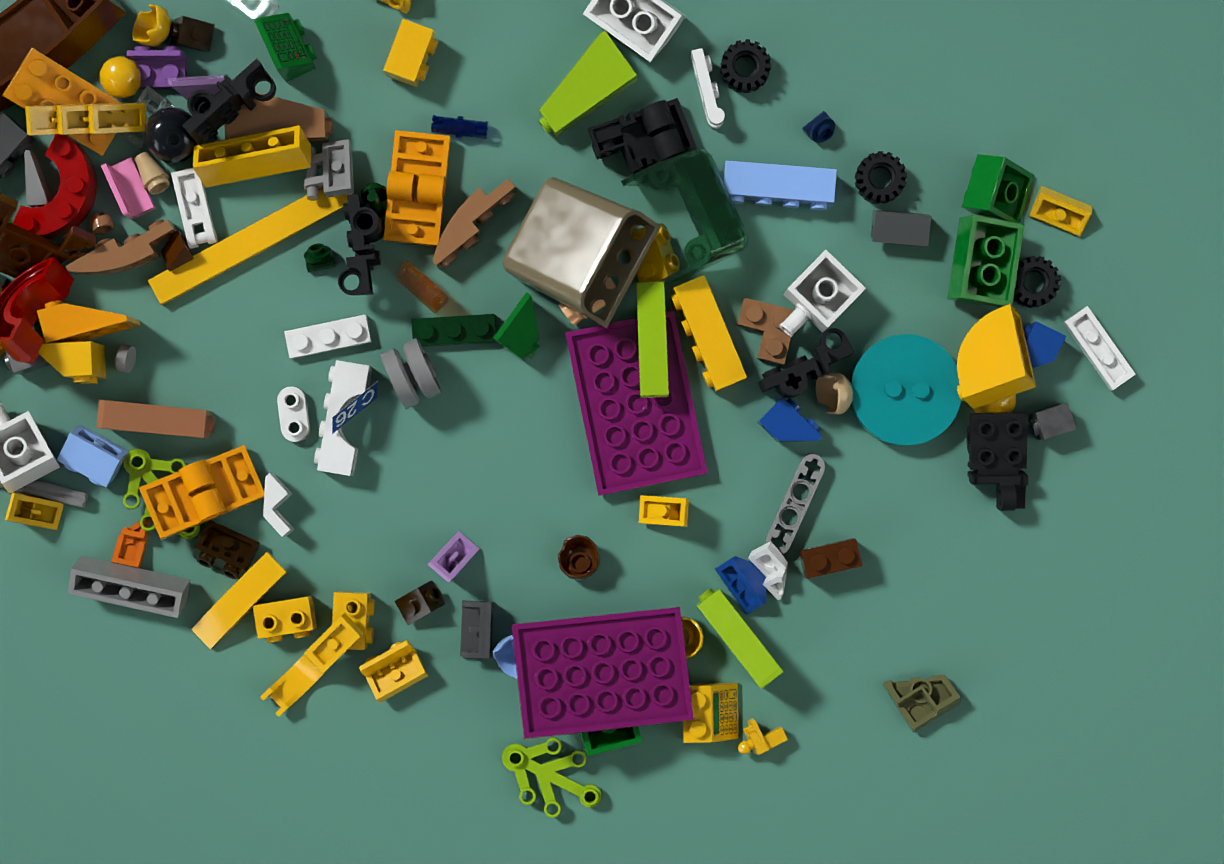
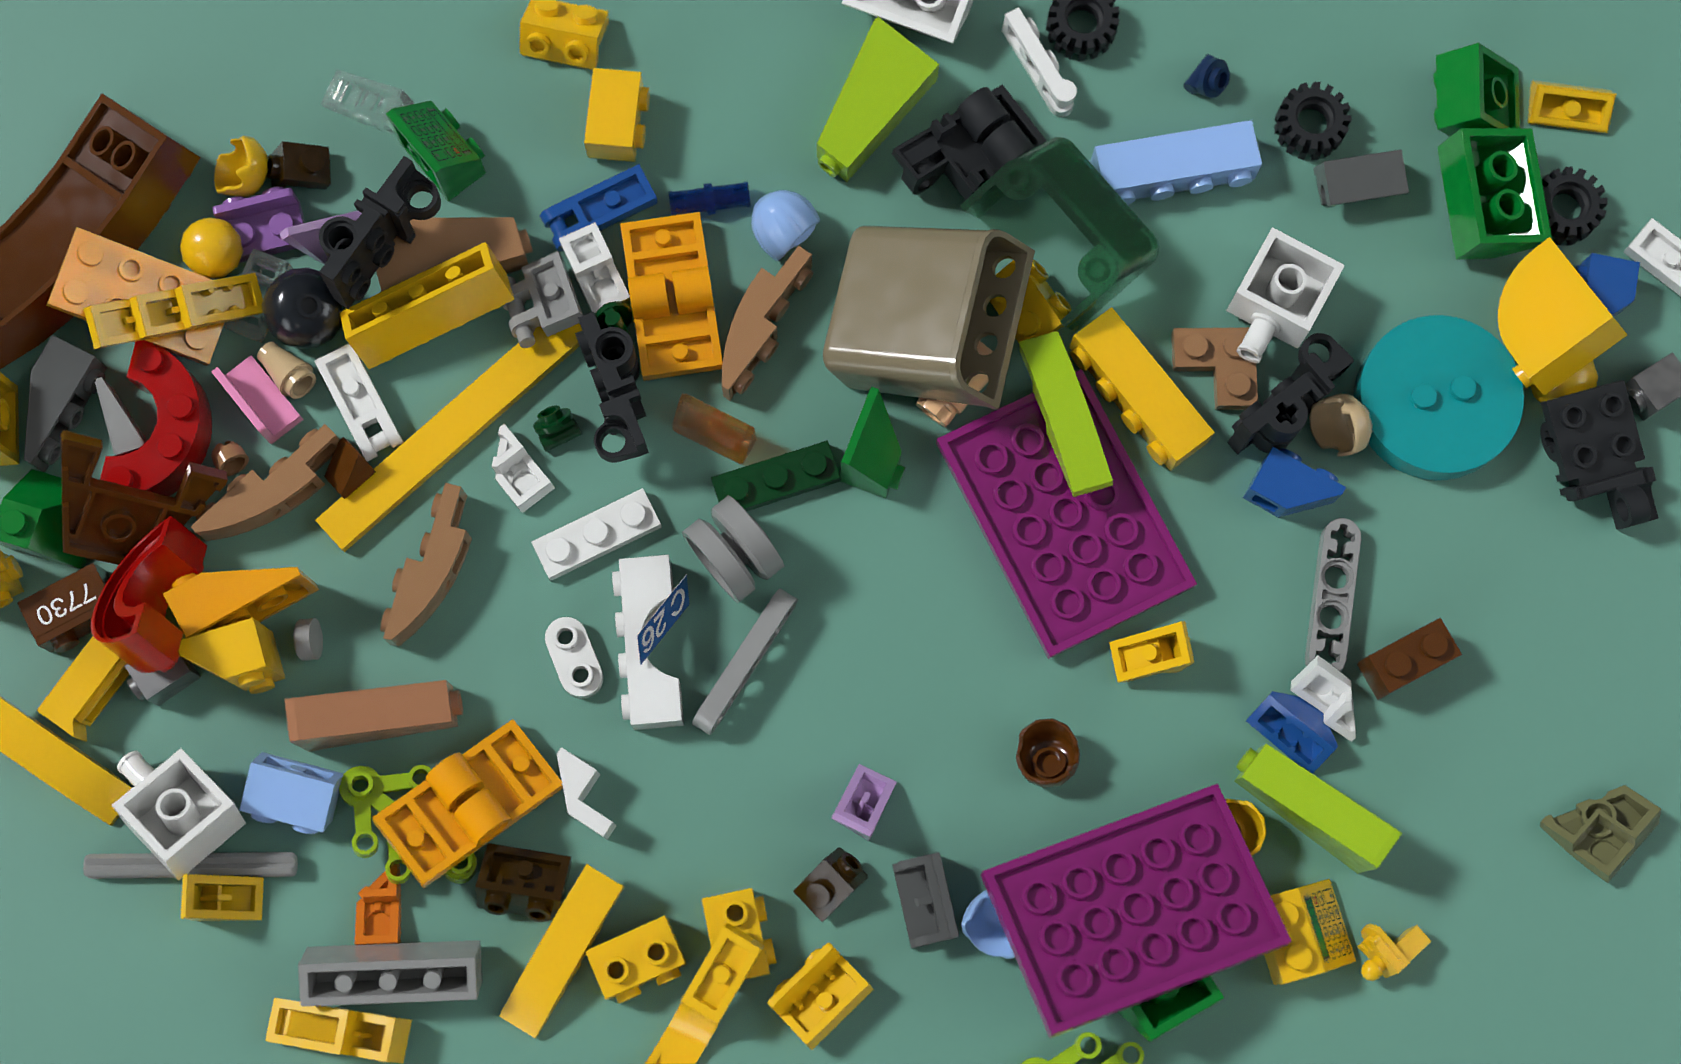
camera: 20 degrees left, 10 degrees down
(89, 613) = (339, 1031): none -> yellow slope
(208, 342) = (424, 584): none -> medium nougat slope
(287, 282) = (518, 472): none -> white slope
(370, 156) = (594, 267): none -> white slope
(385, 114) = (602, 203): none -> blue plate
(402, 446) = (744, 661): none -> light grey beam
(503, 157) = (782, 222): none -> light blue hair

